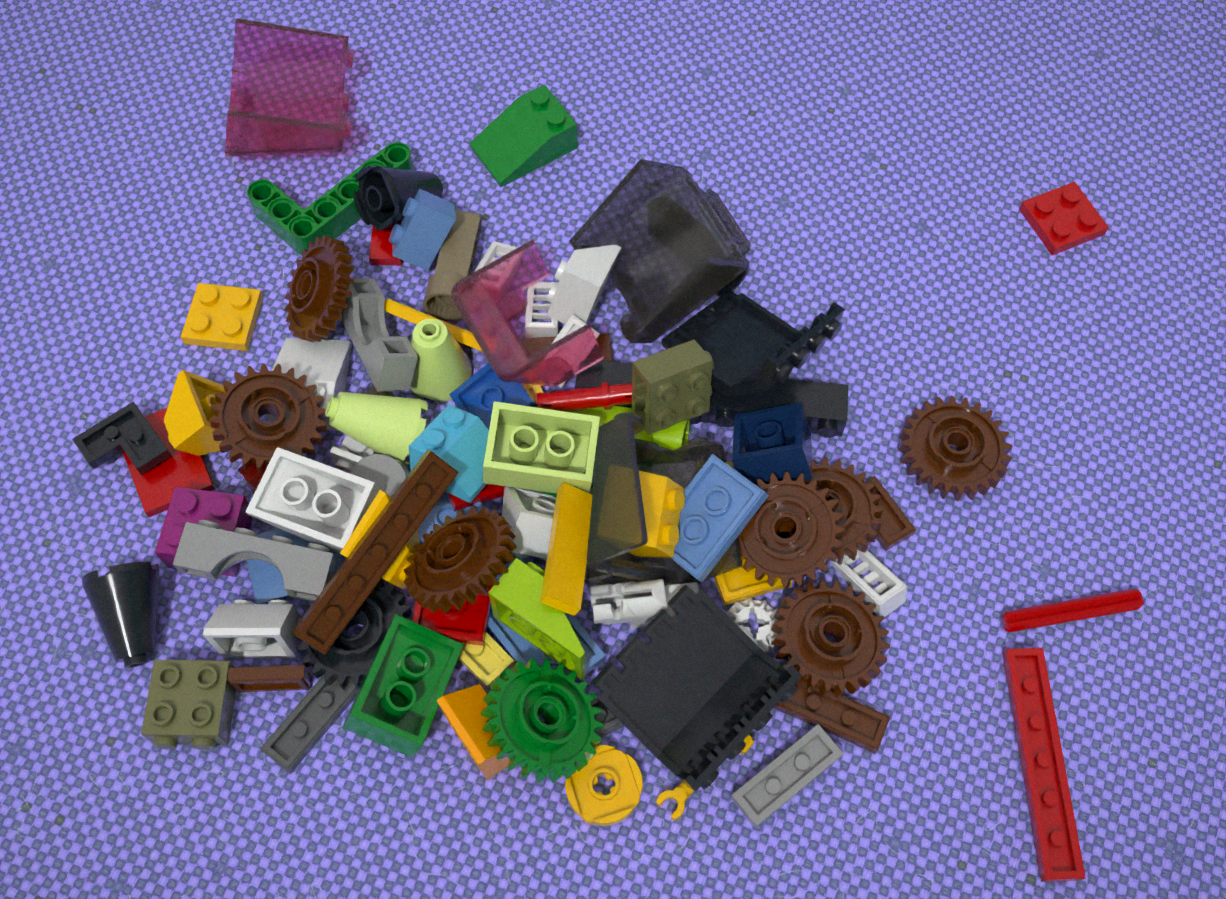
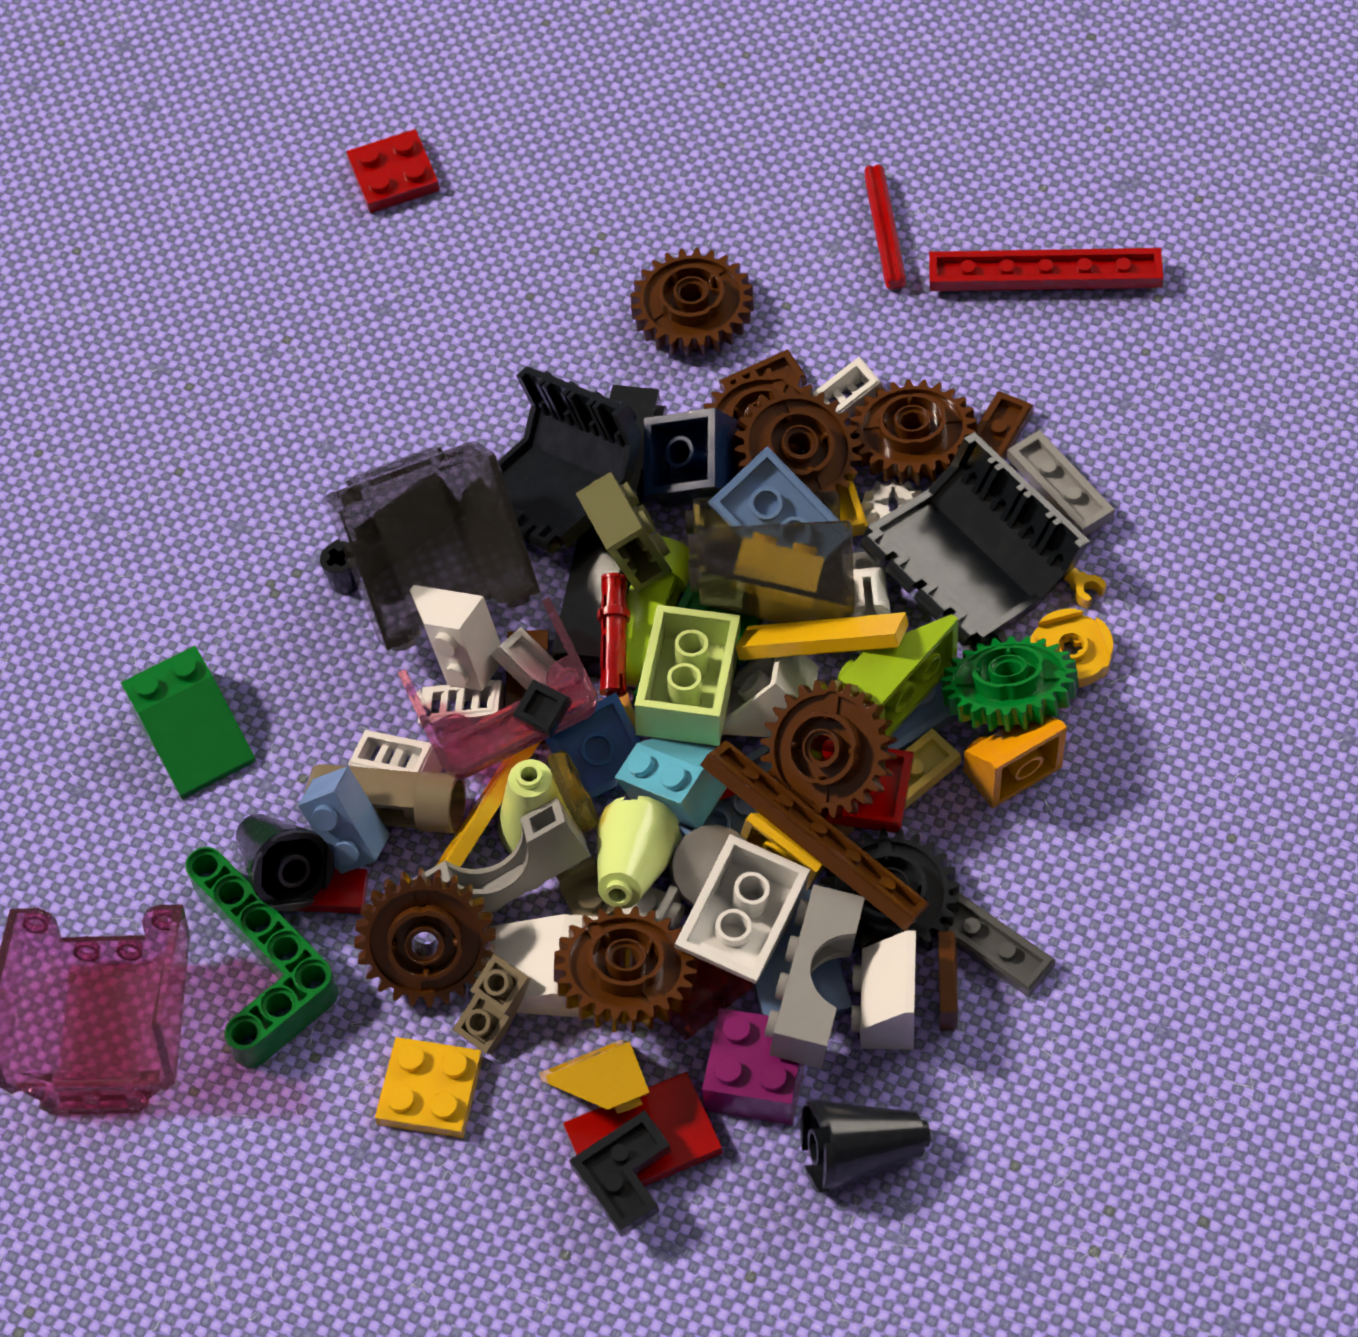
camera: 80 degrees left, 5 degrees down
(189, 704) = (977, 1065): olive brick -> none
(271, 344) = (494, 1005): none -> dark tan slope
(403, 686) = (968, 828): green slope -> none
(438, 375) = (572, 791): none -> clear yellow tile
(494, 337) = (542, 708): none -> black tile

